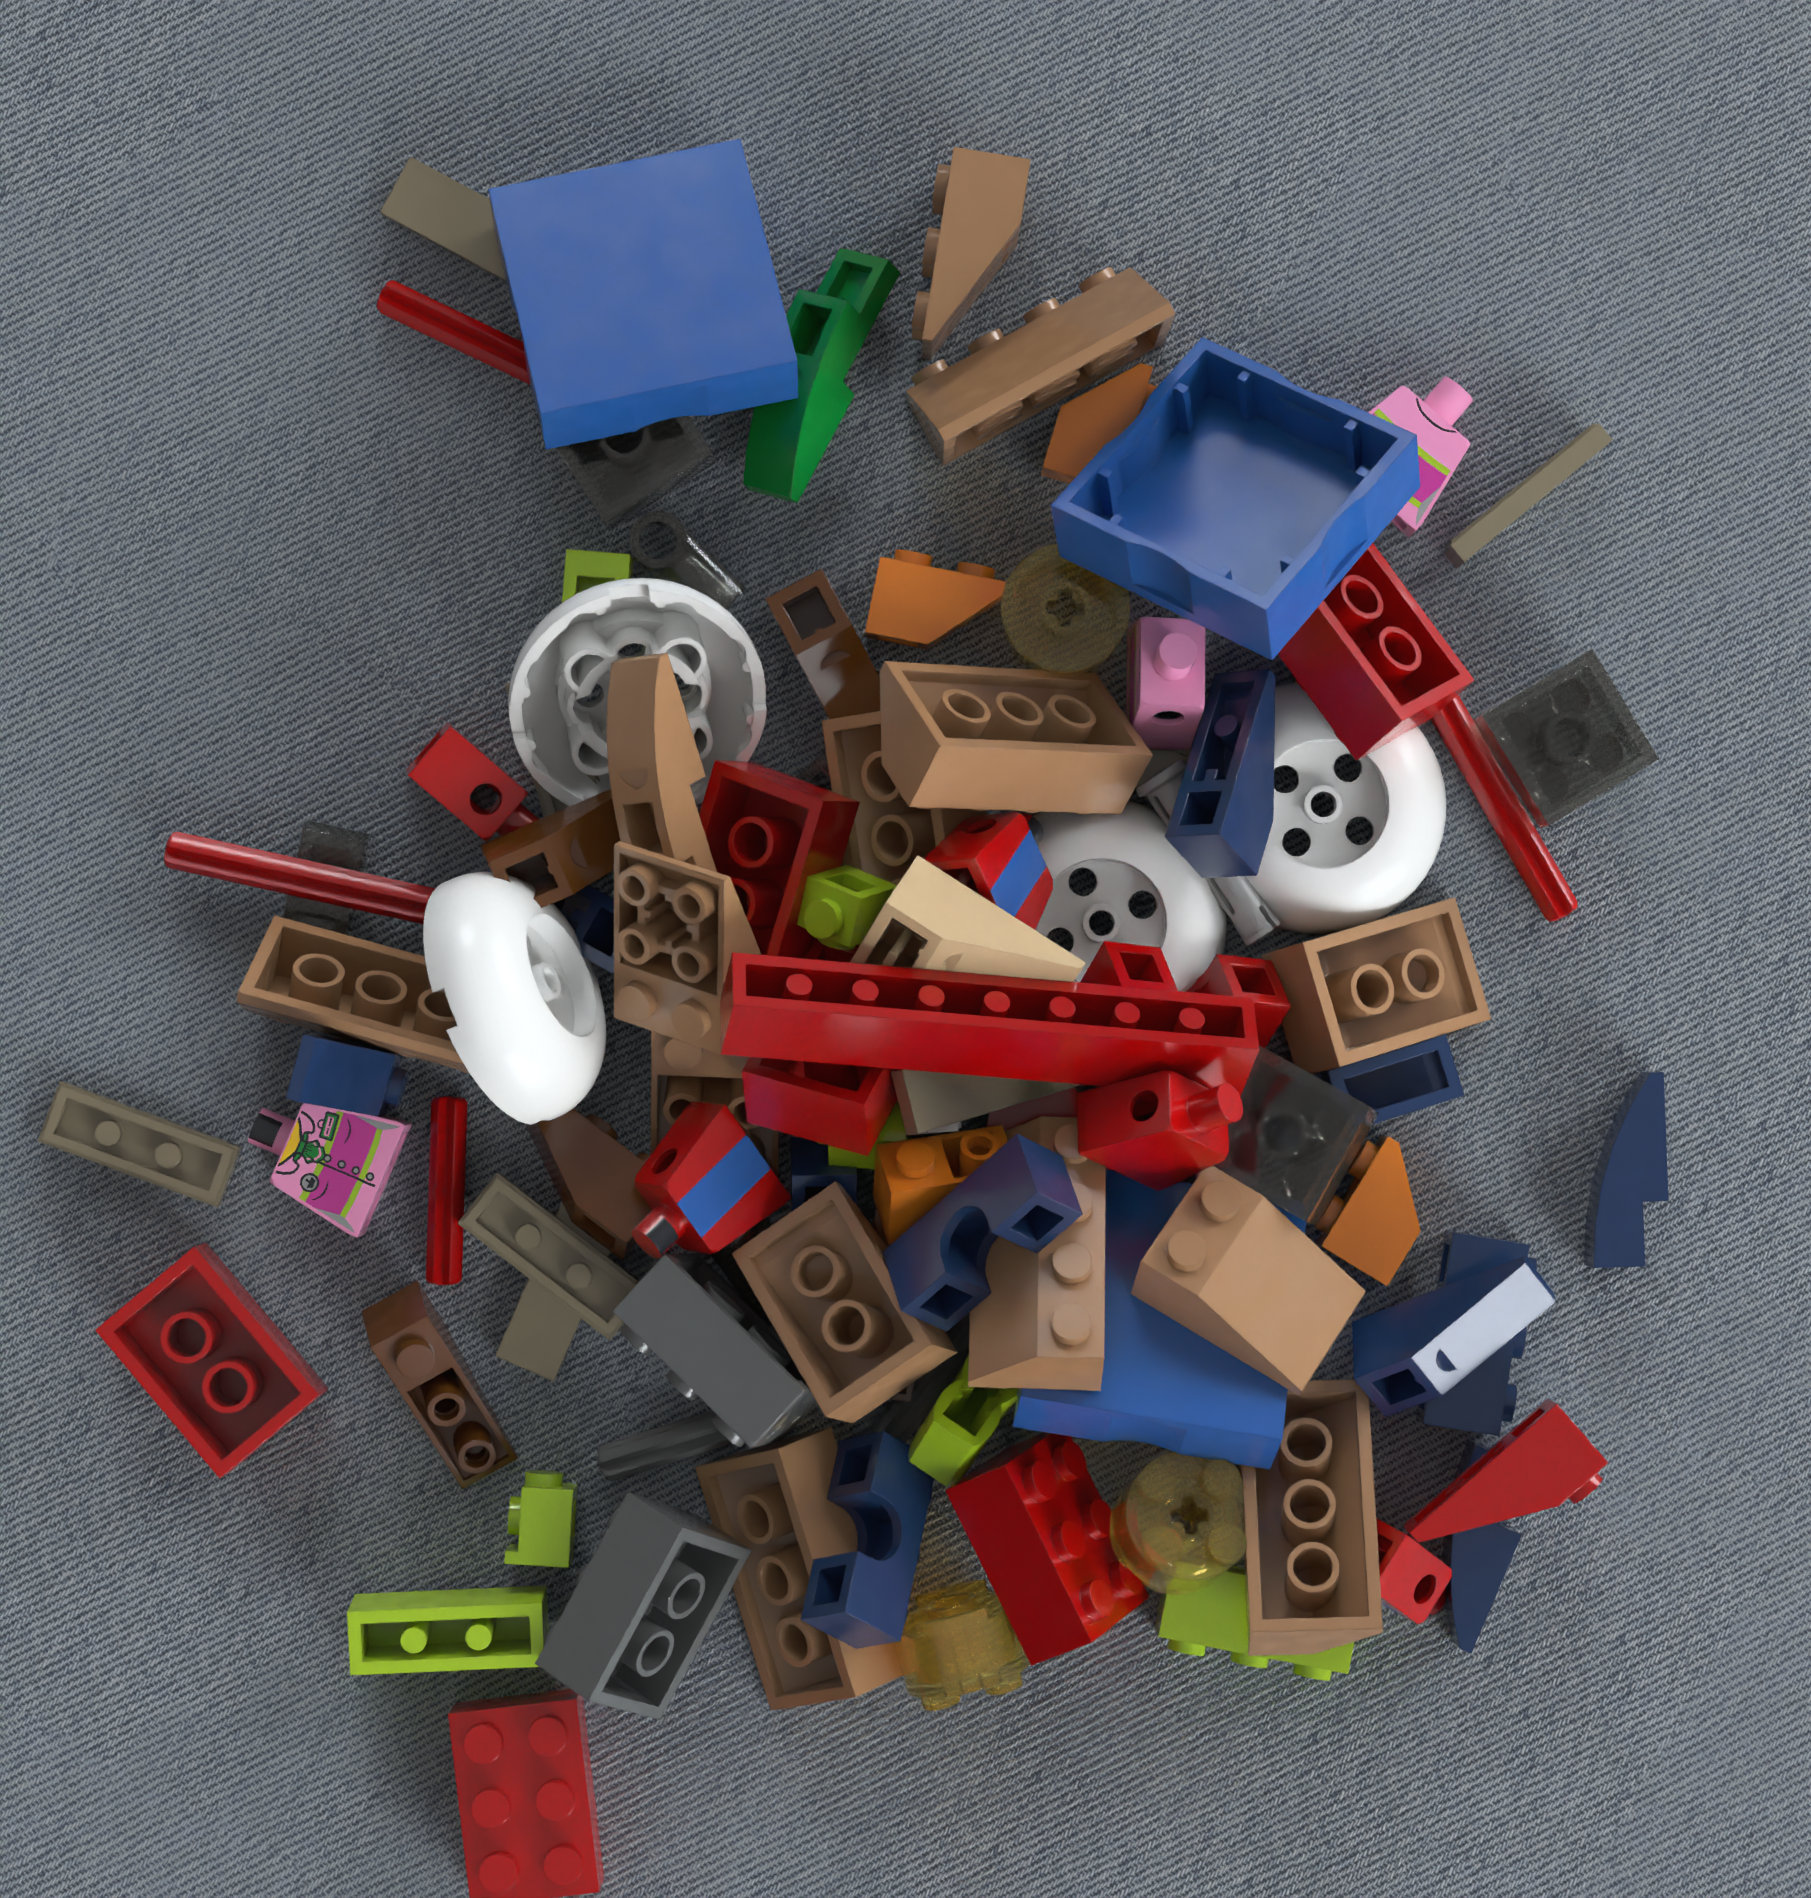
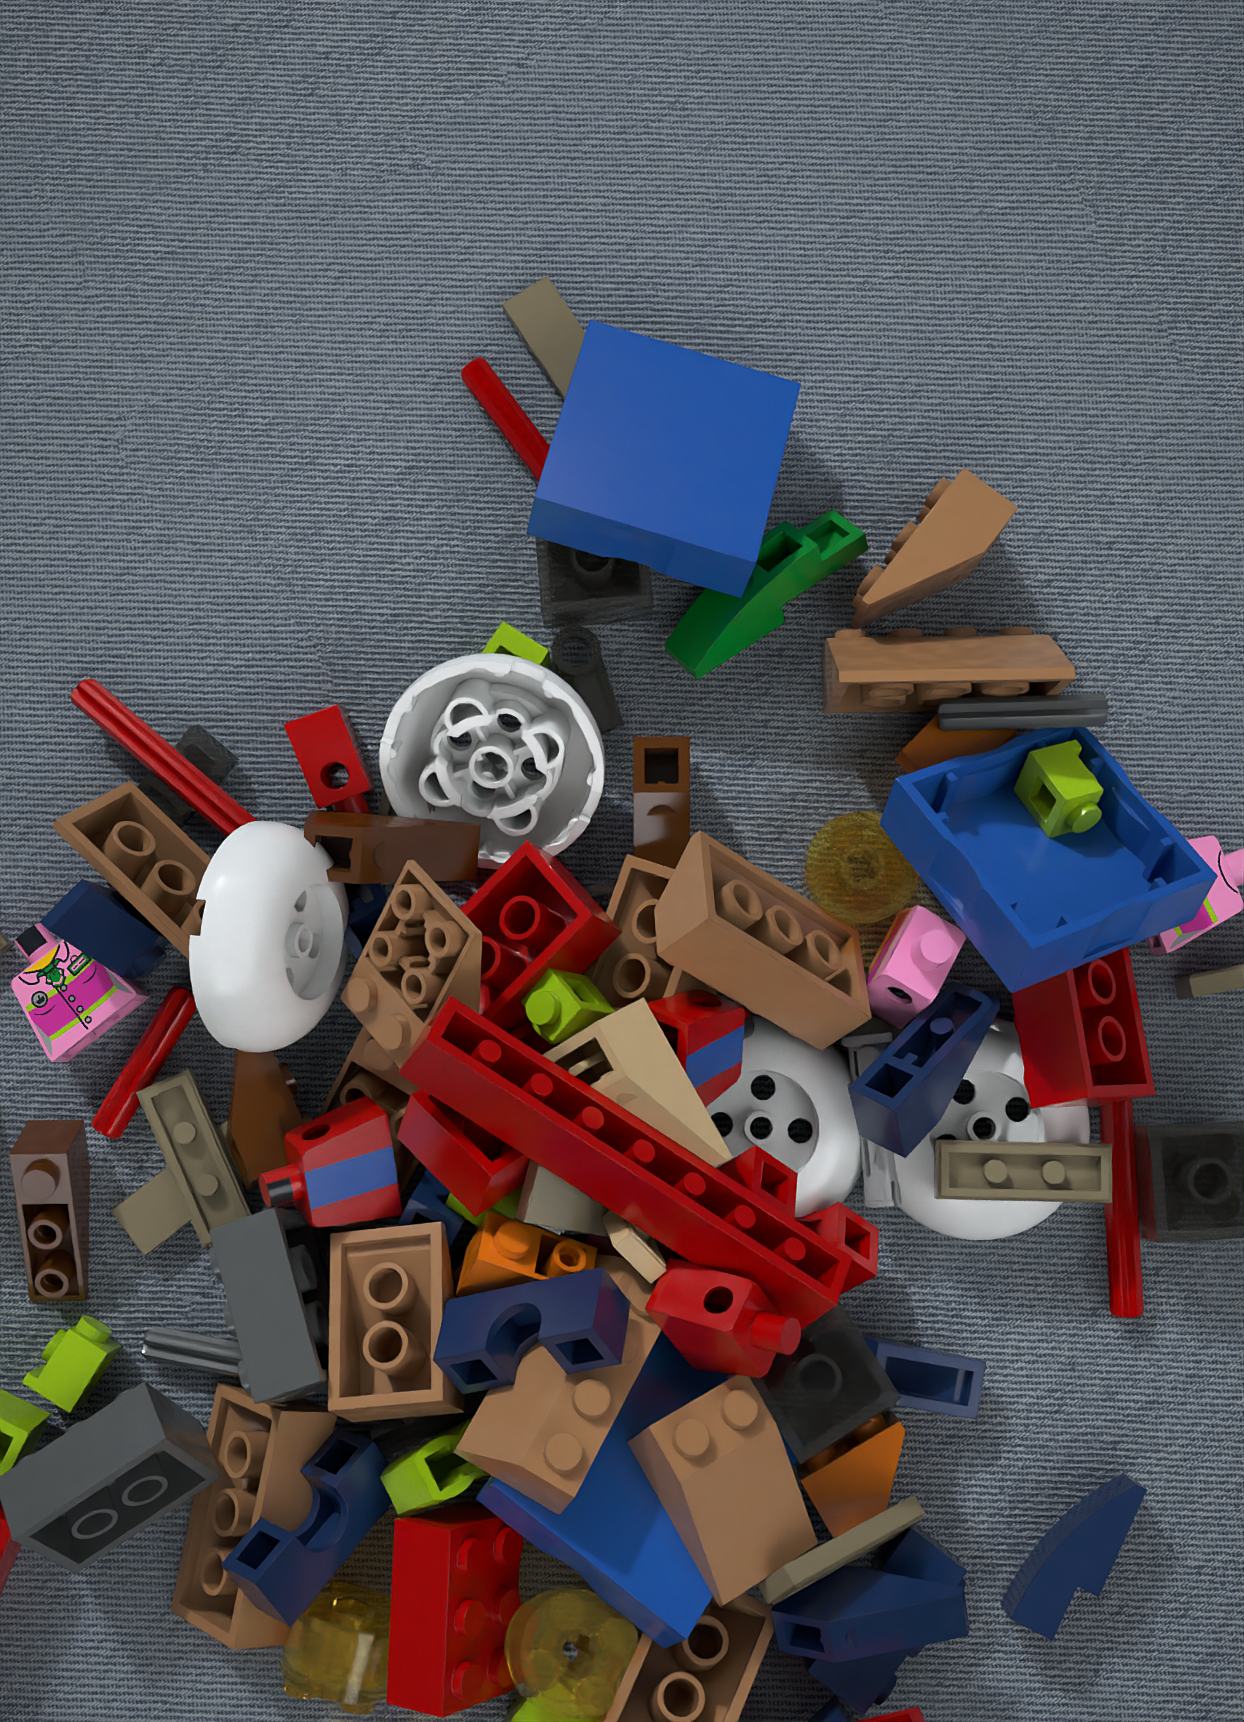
camera: 30 degrees right, 5 degrees down
(654, 761) = (476, 815): medium nougat slope -> none
(926, 603) = (755, 809): orange slope -> none
(1037, 1099) = (635, 1246): none -> tan tile
(1144, 364) = (1022, 712): none -> dark grey axle
(1222, 423) = (1059, 790): none -> lime brick
(1379, 987) = (951, 1296): medium nougat slope -> none
(1381, 826) = (1023, 1171): none -> dark tan tile
(1392, 1285) = (841, 1550): none -> dark tan tile

